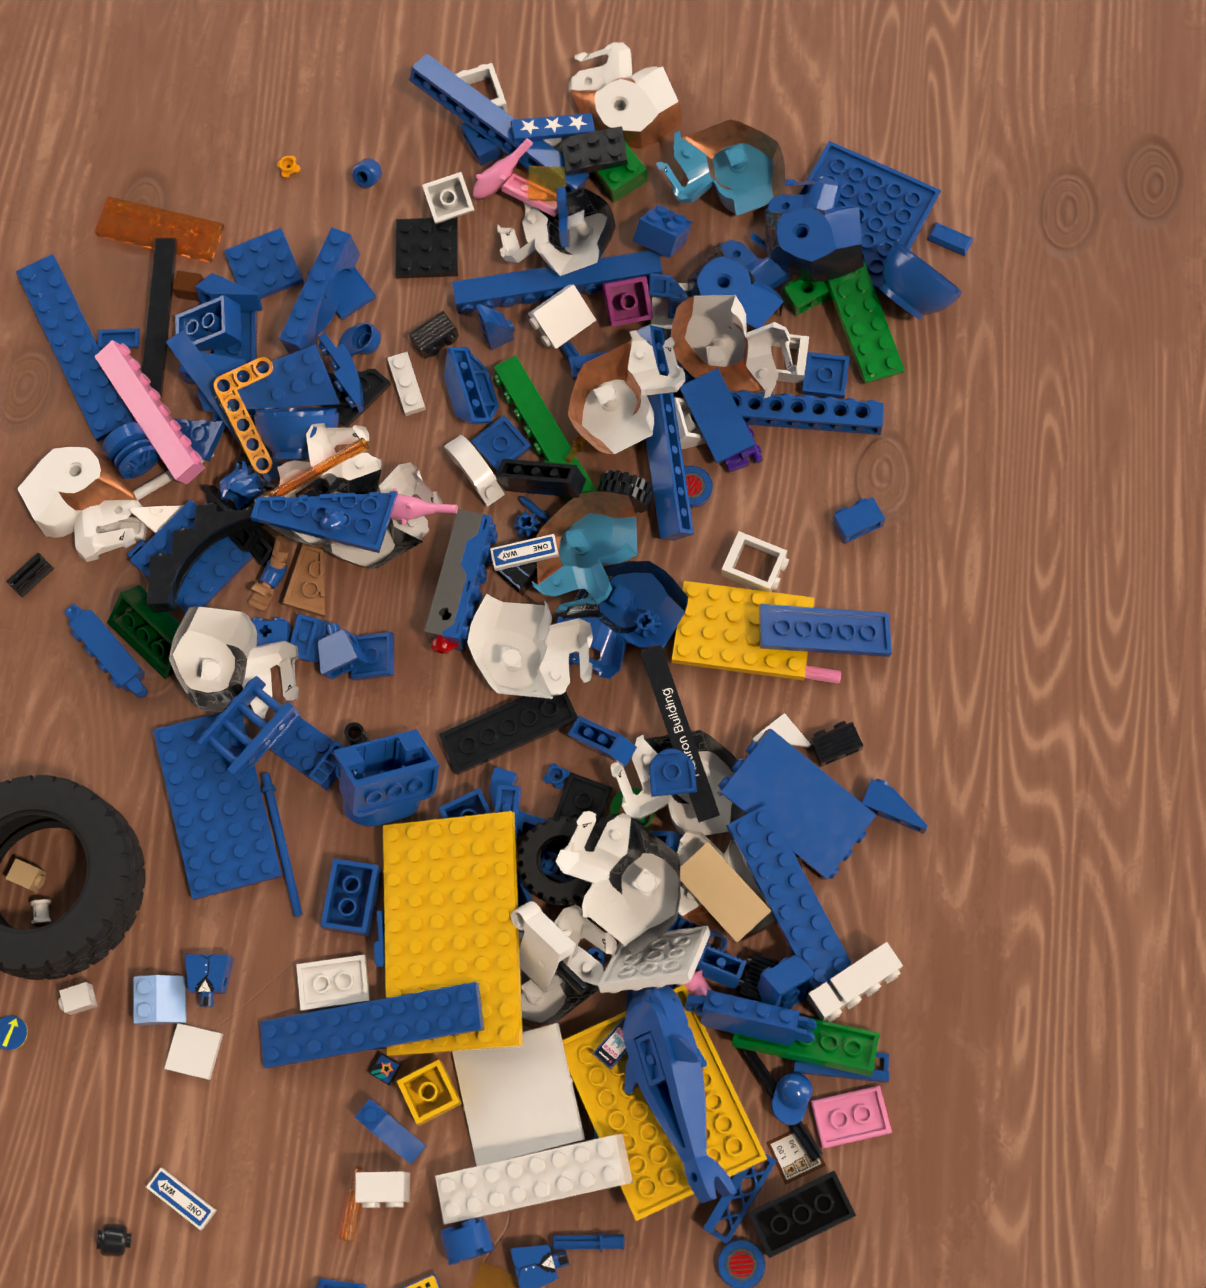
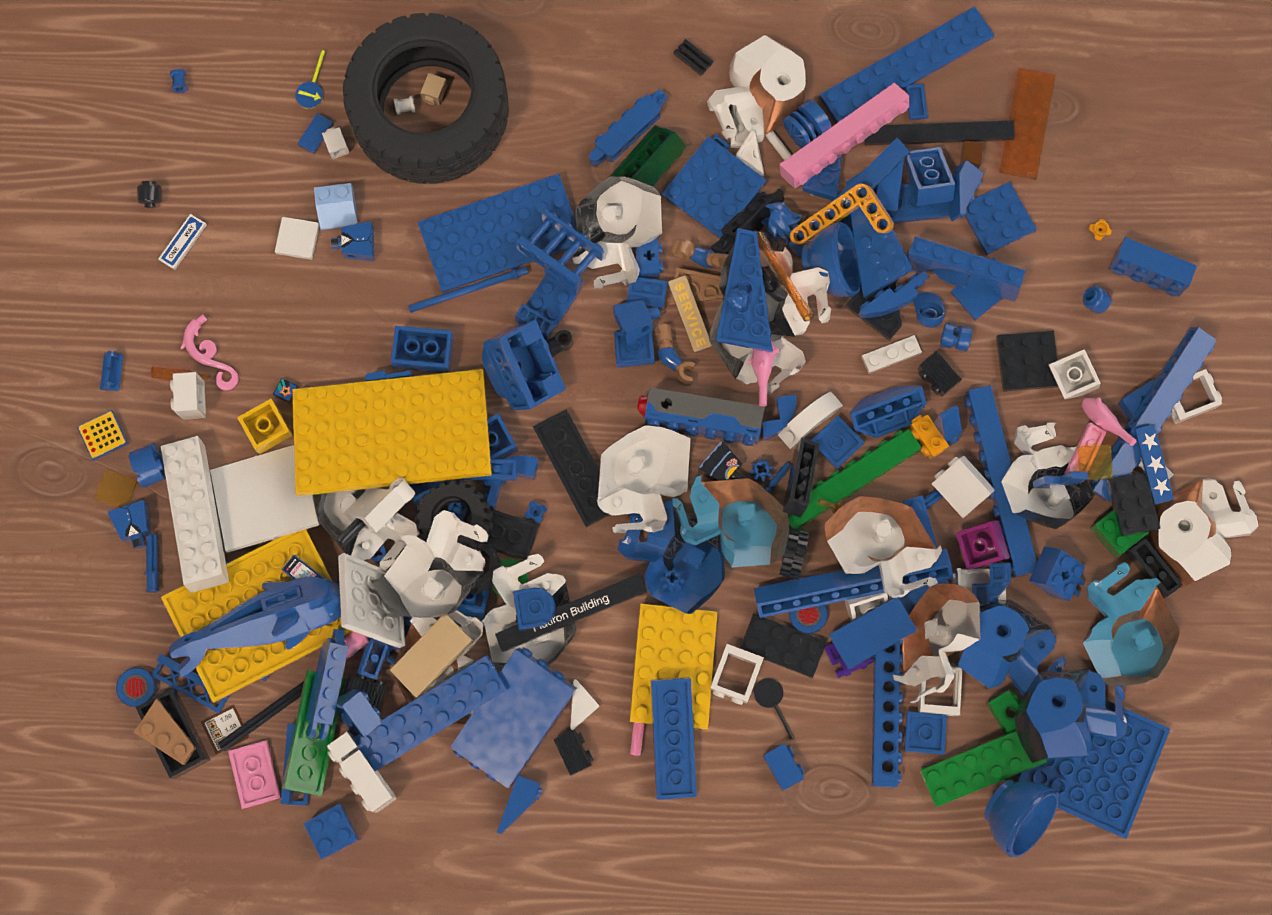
camera: 80 degrees right, 5 degrees up
(61, 1025) = (313, 135): none -> blue tile
(188, 545) = (697, 169): black arch -> none
(297, 1187) = (206, 359): none -> bright pink plant
(333, 982) = (354, 342): white plate -> none
(337, 116) = (1152, 267): none -> blue brick
(338, 592) = (689, 313): none -> tan tile
(372, 1025) = (315, 375): blue plate -> none
(389, 616) = (670, 358): none -> medium nougat piece
(390, 1131) = (236, 398): blue slope -> none
(394, 314) = (956, 337): none -> blue wheel
(465, 496) = (785, 410): none -> blue brick
(502, 348) = (928, 436): none -> light orange brick
(524, 552) = (731, 468): tile -> none
(602, 740) = (561, 546): blue brick -> none
(660, 140) = (1153, 567): none -> black brick
(724, 514) = (783, 645): none -> black plate
(779, 531) = (769, 694): none -> black piece
(791, 1098) = (266, 723): blue cap -> none
(803, 1219) = (164, 733): none -> medium nougat wing
(921, 1022) = (331, 831): none -> blue brick
(950, 239) = (1077, 849): blue tile -> none

